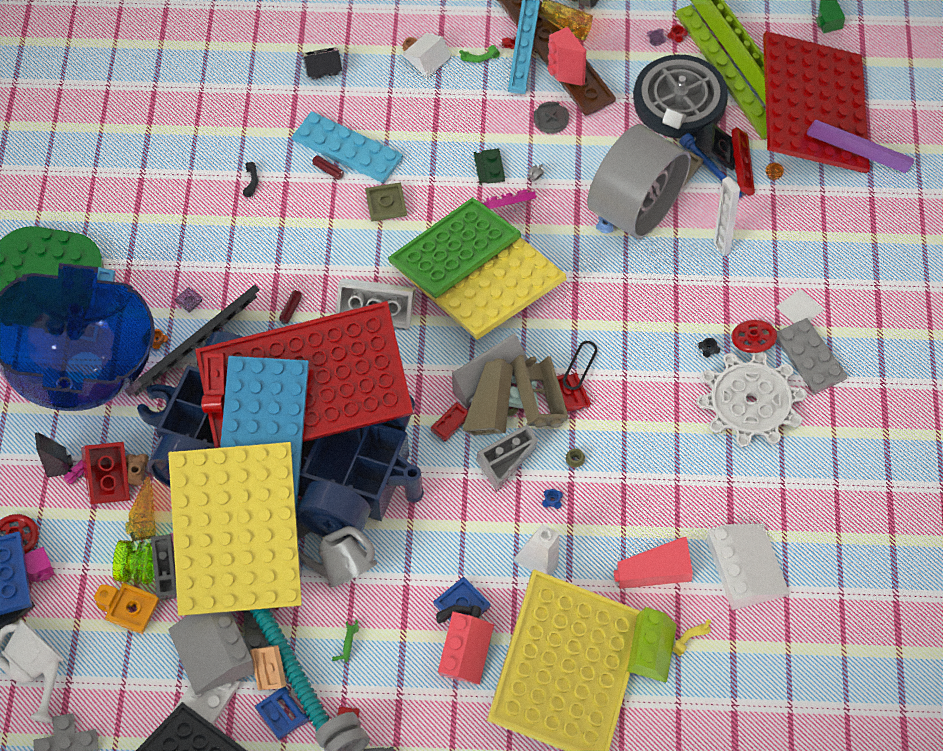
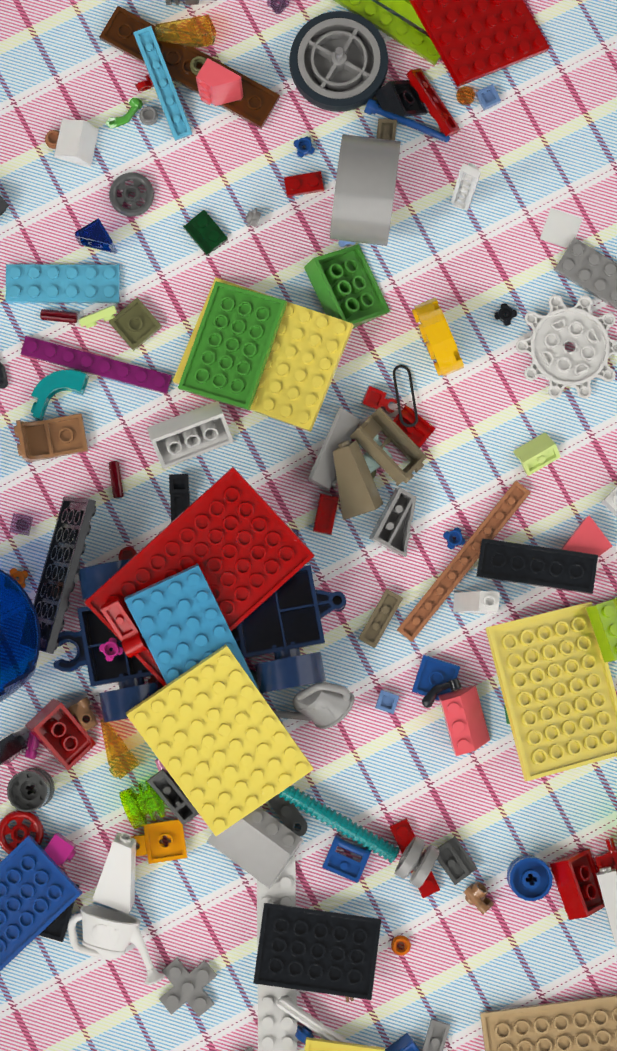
camera: 30 degrees left, 25 degrees up
(49, 500) = (20, 792): none -> dark grey wheel
(72, 607) = (117, 879): none -> white slope
(190, 403) = (111, 654): none -> dark pink plate
(257, 248) = (51, 438): none -> medium nougat bracket
(268, 668) = (314, 831): light nougat plate -> none
(288, 211) = (52, 384): none -> teal arch
(334, 217) = (96, 365): none -> magenta plate
(351, 630) = (363, 767): bright green piece -> none
(358, 178) = (106, 314): none -> yellowish green plate
(395, 121) = (95, 237): none -> clear blue slope
(405, 599) = (387, 701): none -> medium blue plate
(444, 528) = (380, 618): none -> dark tan plate
(445, 106) = (119, 184): none -> dark grey plate
(498, 64) = (148, 115): none -> light grey plate
(509, 198) = (248, 264): dark pink plate -> none
(551, 117) = (231, 147): dark grey tile -> none
(553, 518) = (462, 561): none -> nougat plate
(556, 353) = (375, 398): none -> red plate
(575, 453) = (451, 482): olive plate -> none
(584, 257) = (347, 286): none -> bright green slope
(587, 168) = (303, 184): none -> red plate
(611, 139) = (303, 151): none -> blue plate
(613, 551) = (537, 566): none -> black plate
(634, 324) = (438, 336): none -> yellow piece
(670, 470) = (537, 453): none -> yellowish green panel
(673, 118) = (350, 94): white slope -> none
(754, 336) = (548, 295): red plate -> none
(793, 180) = (488, 97): none -> medium blue plate
(860, 146) = (534, 32): medium lavender tile -> none

